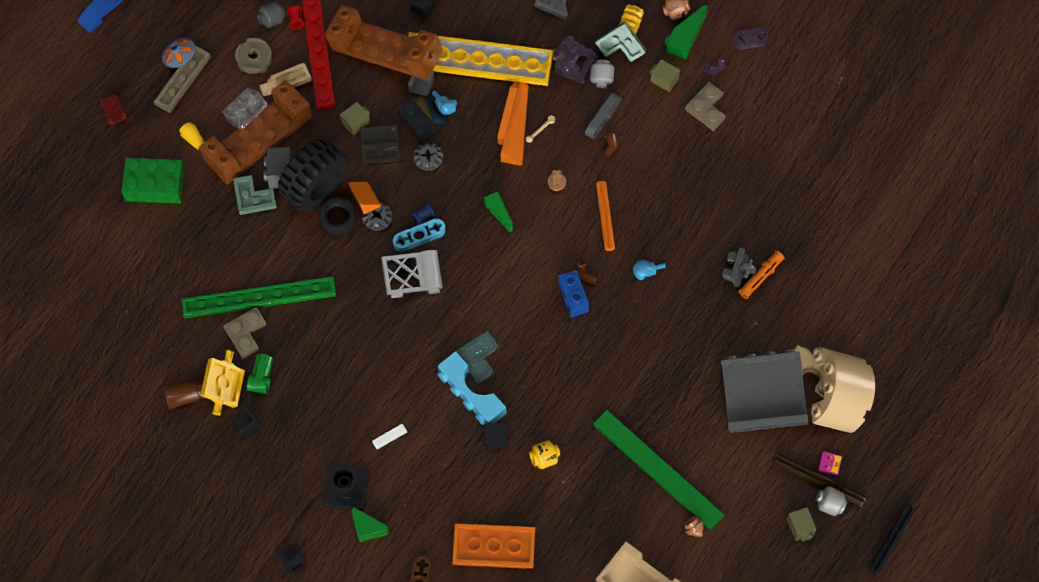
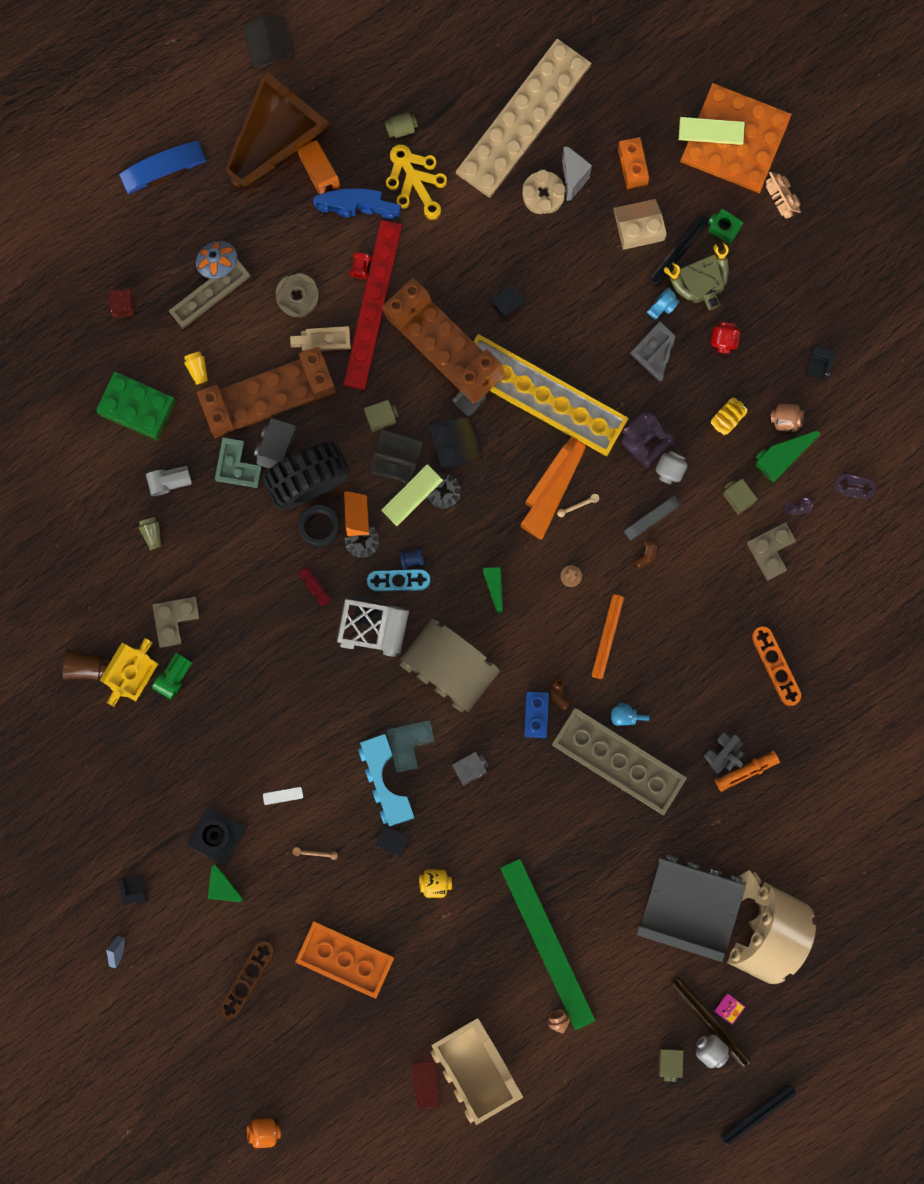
camera: 20 degrees right, 15 degrees up
(196, 229) = (163, 481): none -> light grey piece
(200, 270) = (151, 532): none -> olive cone
(244, 108) = (264, 358): clear brick -> none
(247, 424) = (138, 726): black panel -> none
(258, 297) = (202, 585): green tile -> none
(271, 14) = (333, 252): dark grey head -> none
(352, 264) = (314, 586): none -> dark red axle
(404, 166) = (412, 495): none -> yellowish green tile
(418, 475) = (297, 851): none -> medium nougat hinge
(444, 104) = (483, 437): dark azure piece -> none
(488, 277) = (450, 665): none -> dark tan cylinder
(536, 352) = (470, 768): none -> flat silver brick
(622, 38) = (711, 436): plate -> none
(655, 305) = (619, 761): none -> dark tan plate
(747, 190) = (780, 664): none -> orange beam

